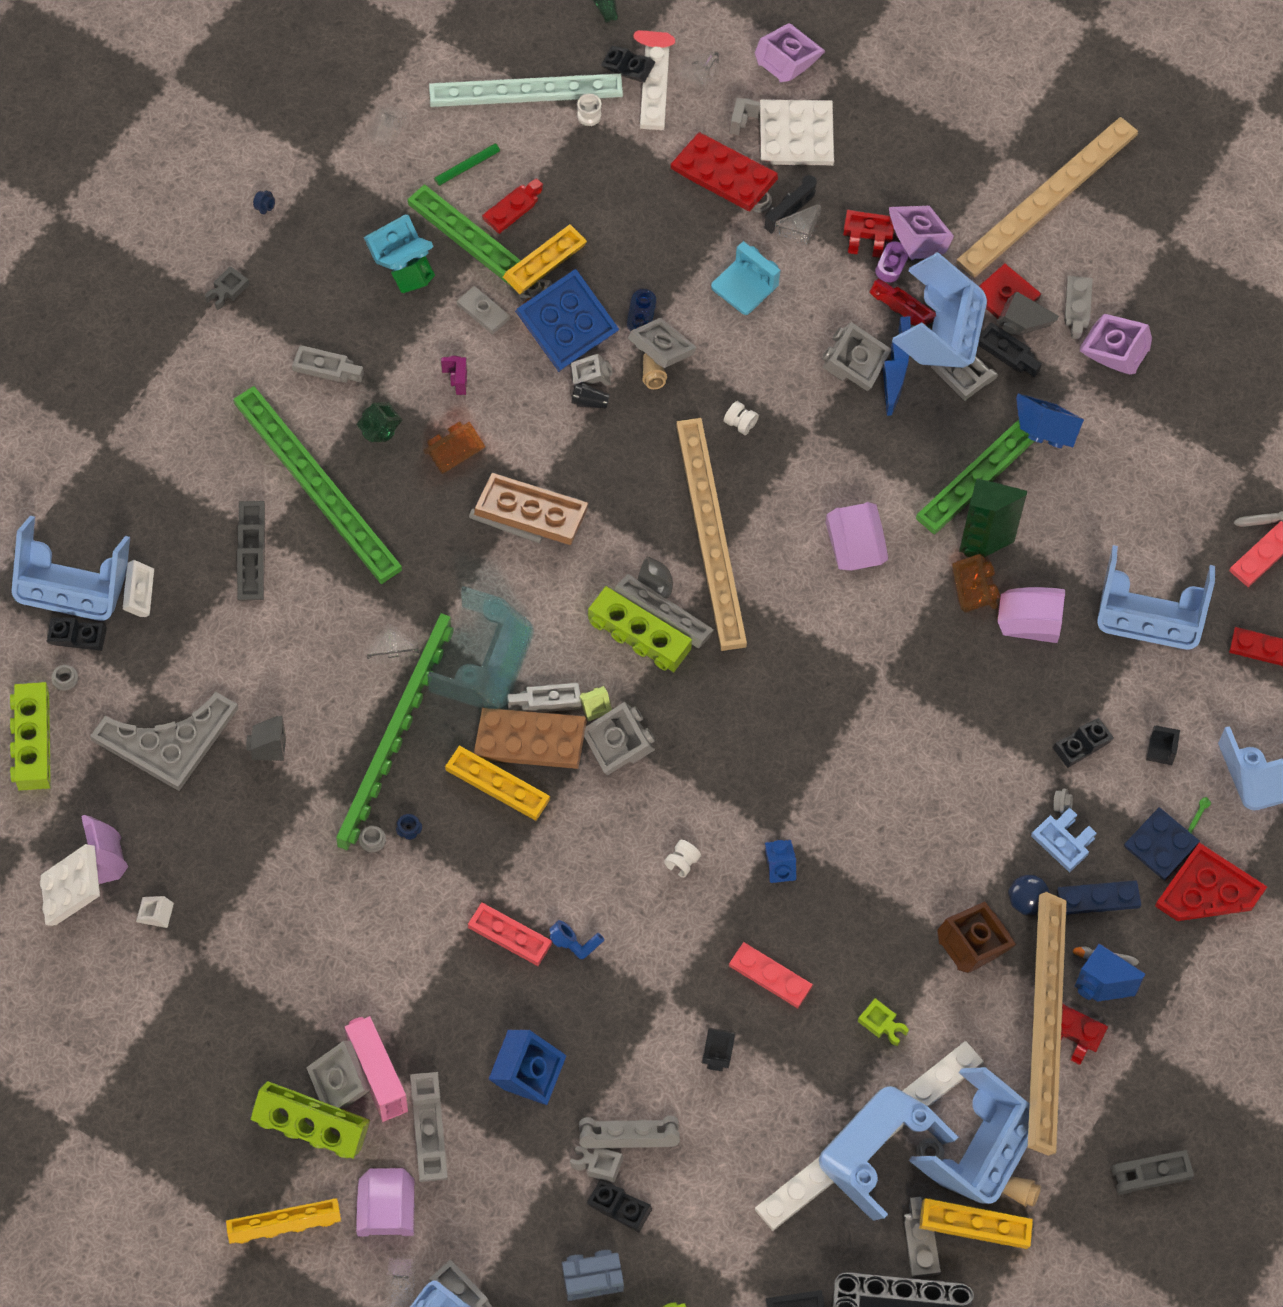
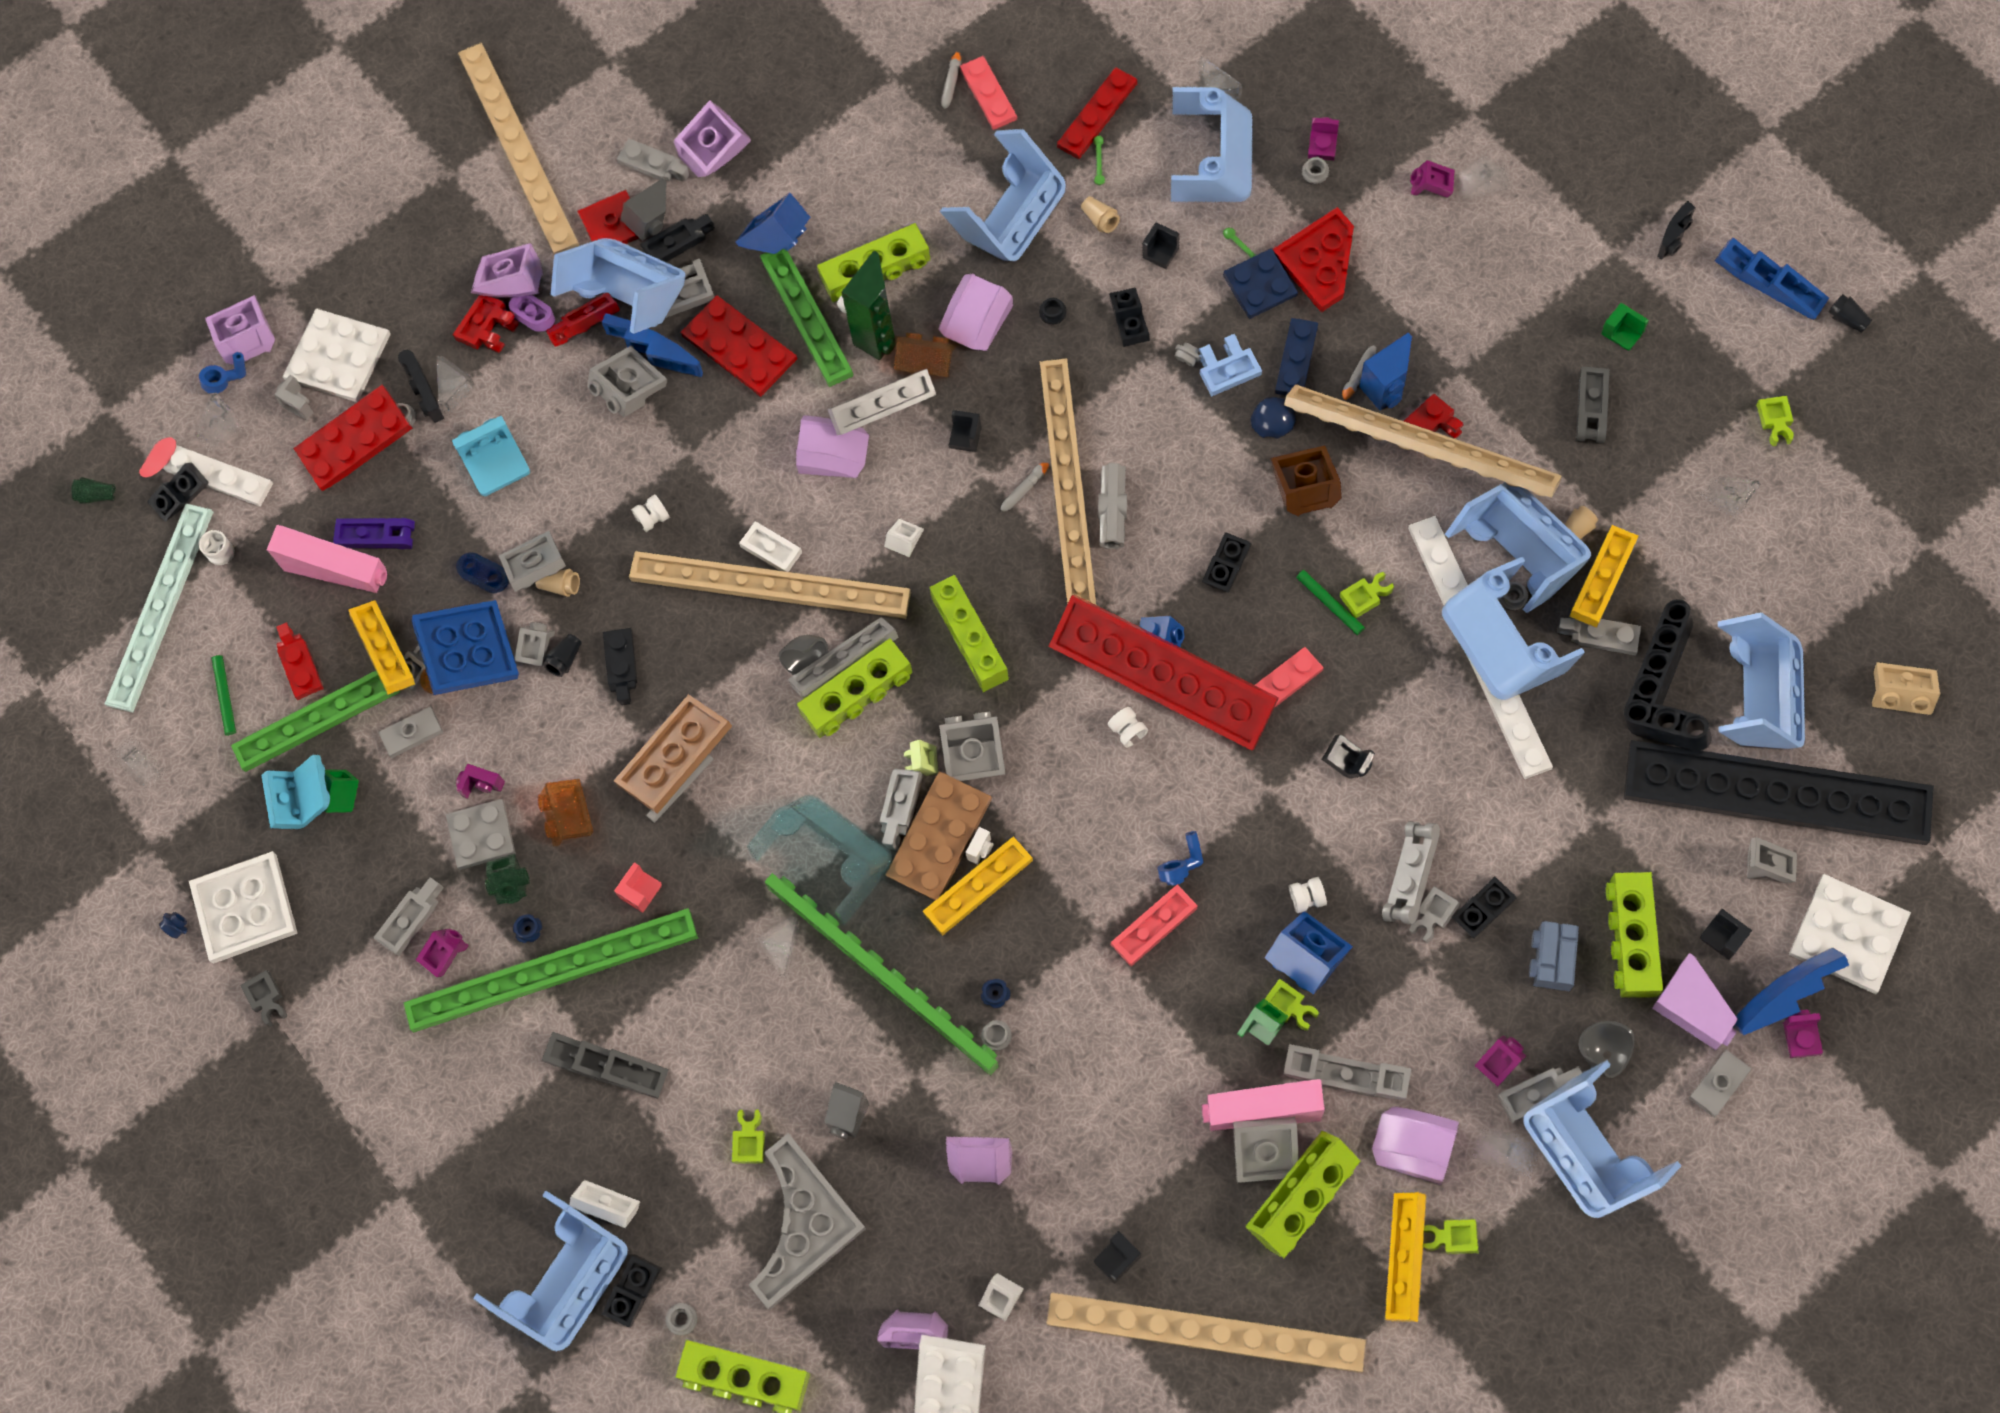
camera: 60 degrees left, 5 degrees up
(172, 1082) = (1206, 1332): none -> tan plate
(213, 991) = (1117, 1257): none -> black panel
(221, 679) = (748, 1144): none -> lime plate
(259, 855) = (979, 1159): none -> lavender slope
(294, 244) = (242, 907): none -> white plate
(306, 397) = (441, 951): none -> magenta bracket
(313, 1258) = (1458, 1236): none -> lime plate
(346, 448) = (527, 921): none -> dark blue plate
(406, 523) = (637, 888): none -> coral panel
(414, 392) = (480, 834): none -> light grey plate
(453, 1045) = (1264, 1022): none -> panel
(475, 1062) = (1289, 1002): none -> lime plate
(483, 1255) = (1501, 1059): none -> magenta bracket
(532, 772) = (980, 846): none -> white plate
(578, 1050) = (1307, 895): none -> white wheel
(598, 443) = (620, 663): none -> black hinge
(605, 190) = (325, 560): none -> bright pink slope
(645, 218) = (373, 533): none -> dark purple plate
(721, 702) = (969, 633): none -> lime brick
(742, 871) = (1163, 672): none -> red plate
(743, 48) = (217, 373): none -> blue plate
(745, 522) = (770, 547): none -> white plate
(796, 624) = (903, 537): none -> white slope
(865, 995) = (1330, 602): none -> green bar
(869, 896) = (1226, 562): none -> black slope
(888, 783) = (1112, 506): none -> light grey piece
(892, 741) = (1067, 480): none -> tan plate
(899, 714) = (1037, 474): none -> light grey piece
(912, 562) = (881, 402): none -> light grey plate
(913, 641) = (965, 431): none -> black panel
(927, 434) = (739, 345): none -> red plate
(1062, 676) = (1052, 311): none -> black plate
(1063, 516) = (905, 240): none -> lime brick
(1175, 686) = (1100, 214): none -> tan cone
(1245, 1179) = (1624, 326): none -> green panel
(1254, 662) = (1099, 178): none -> bright green hinge

